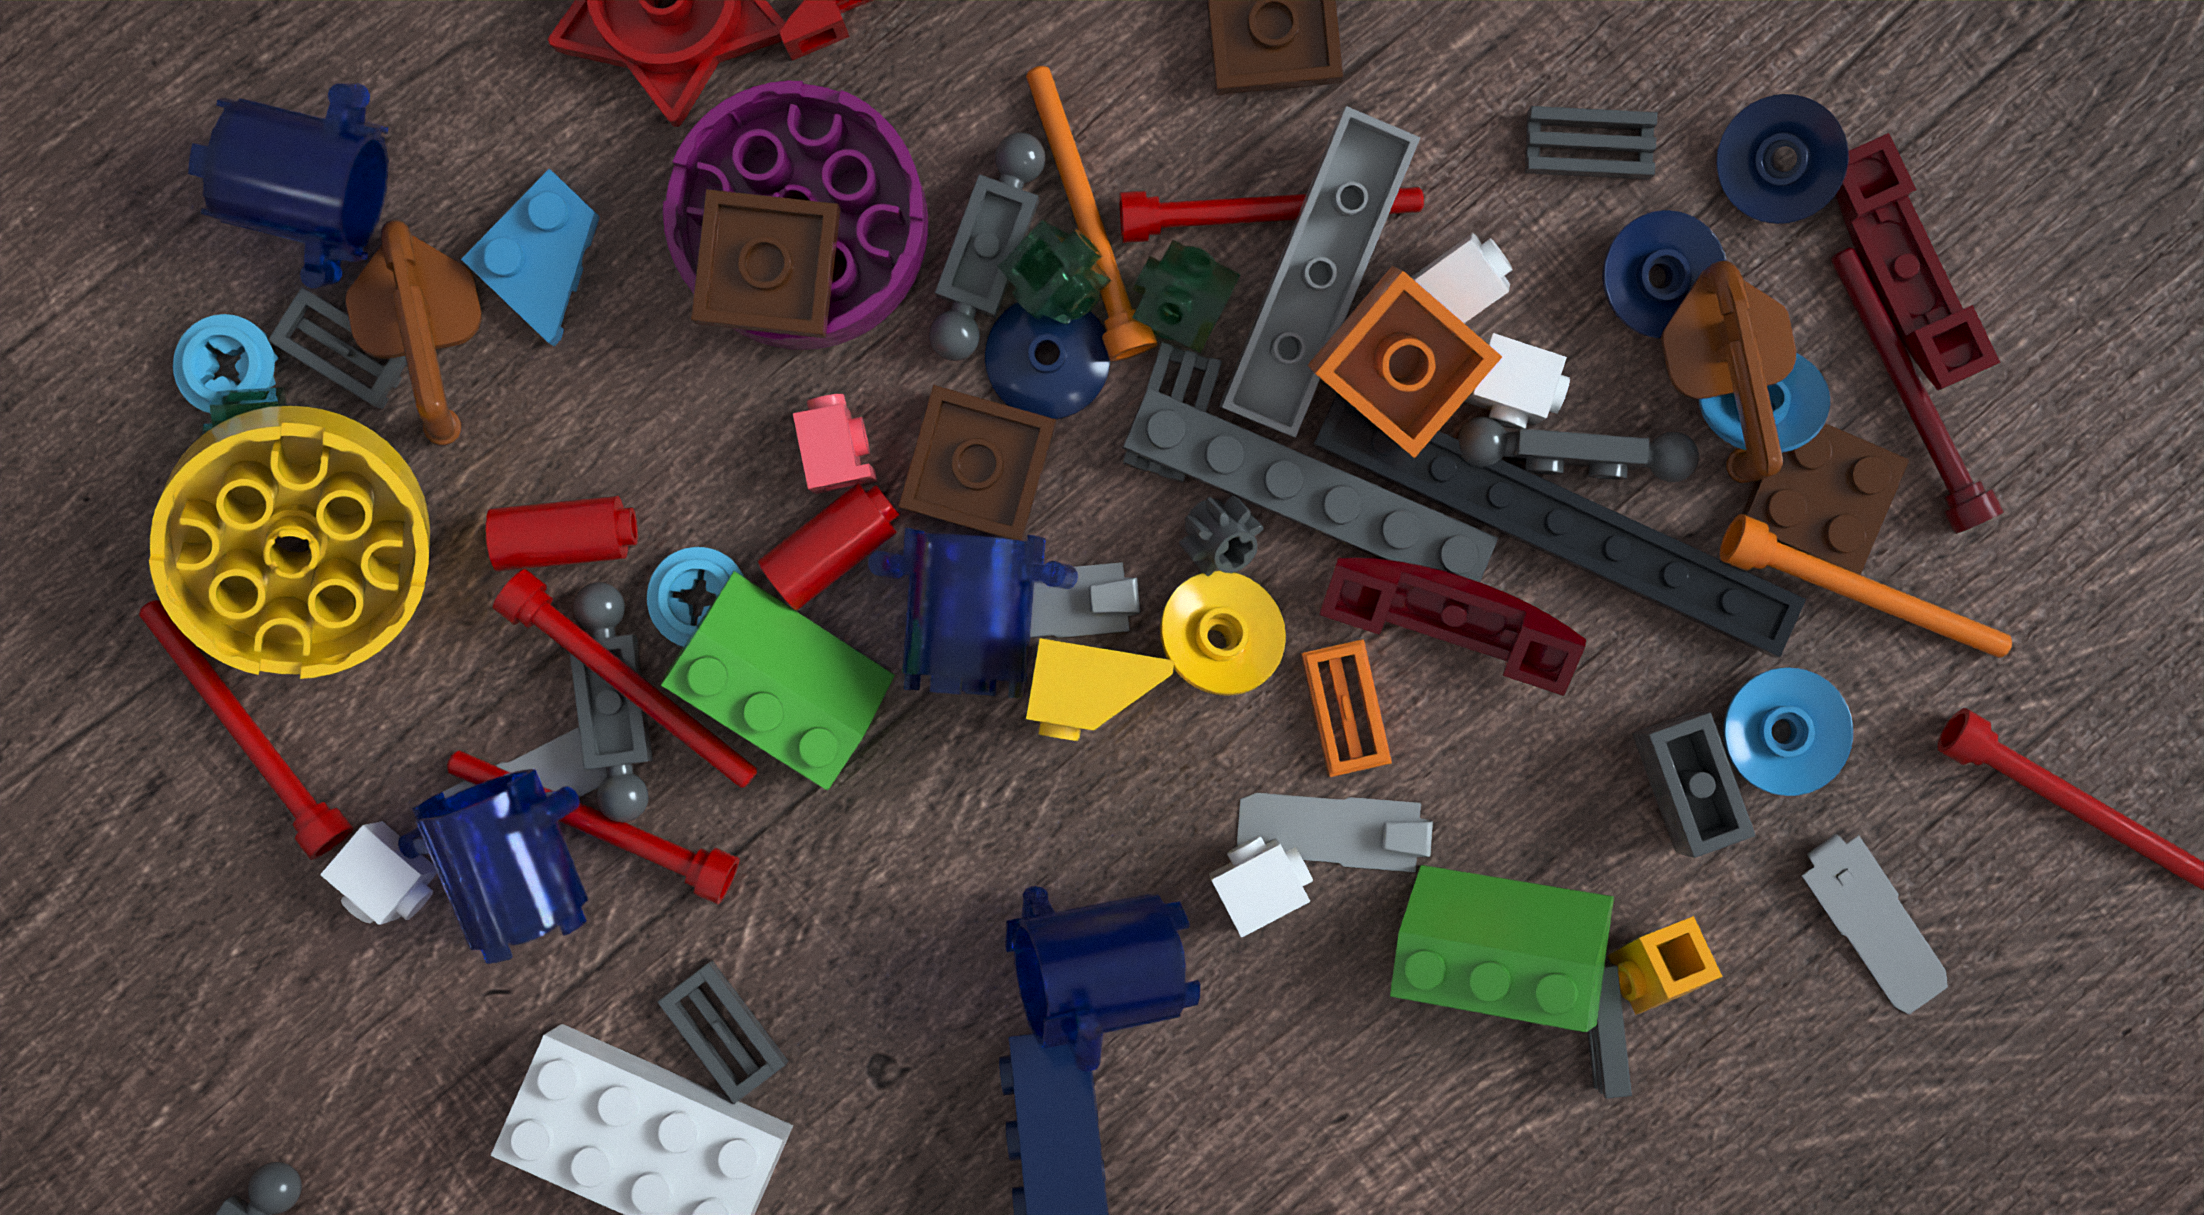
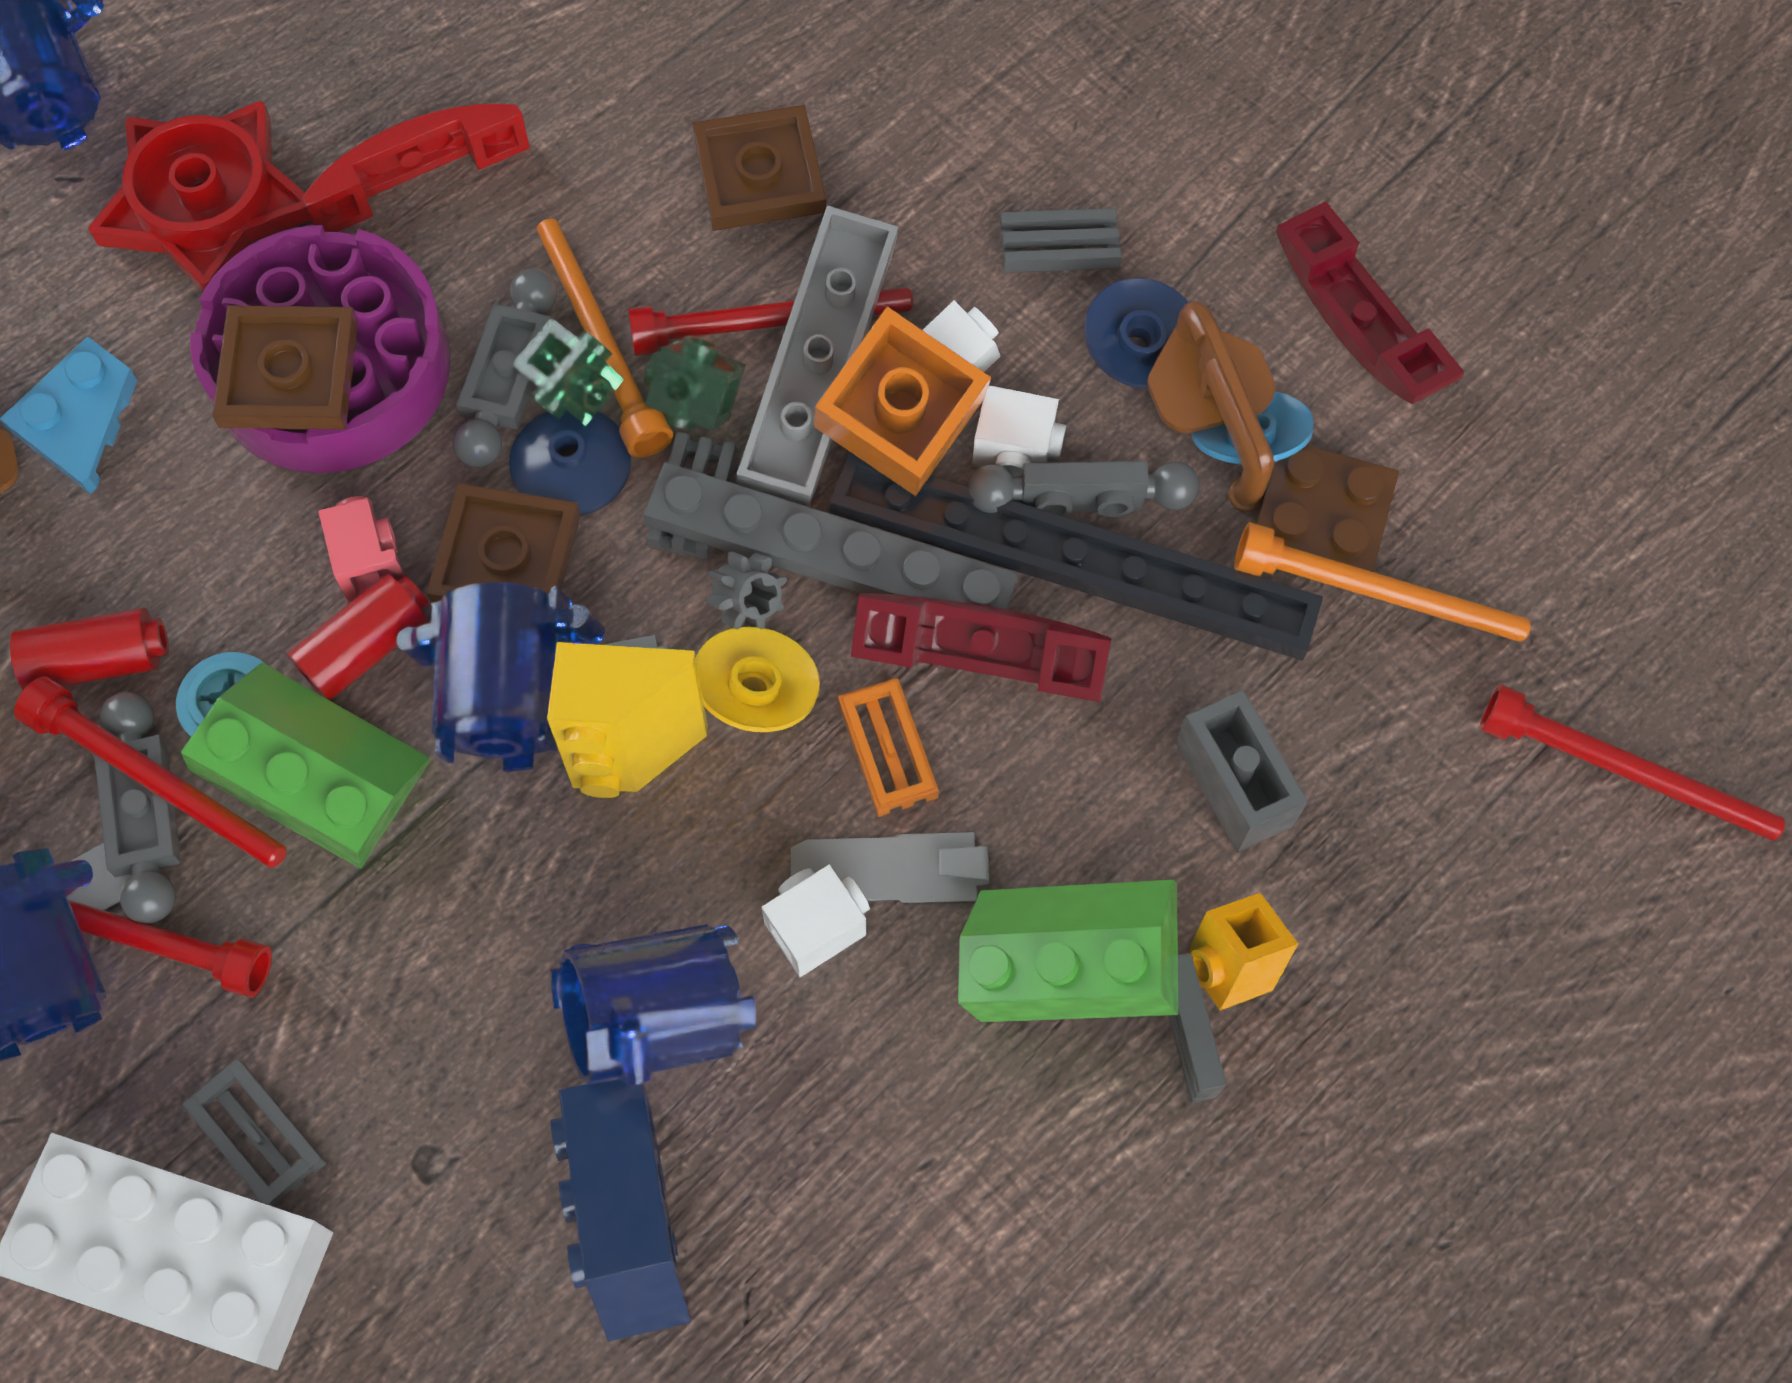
camera: 10 degrees left, 20 degrees down
(1748, 154) = (1220, 210): dark blue dish -> none
(1818, 736) = (1340, 697): dark azure dish -> none
(1875, 922) = (1452, 903): light grey piece -> none
(1967, 500) = (1463, 503): dark red piece -> none

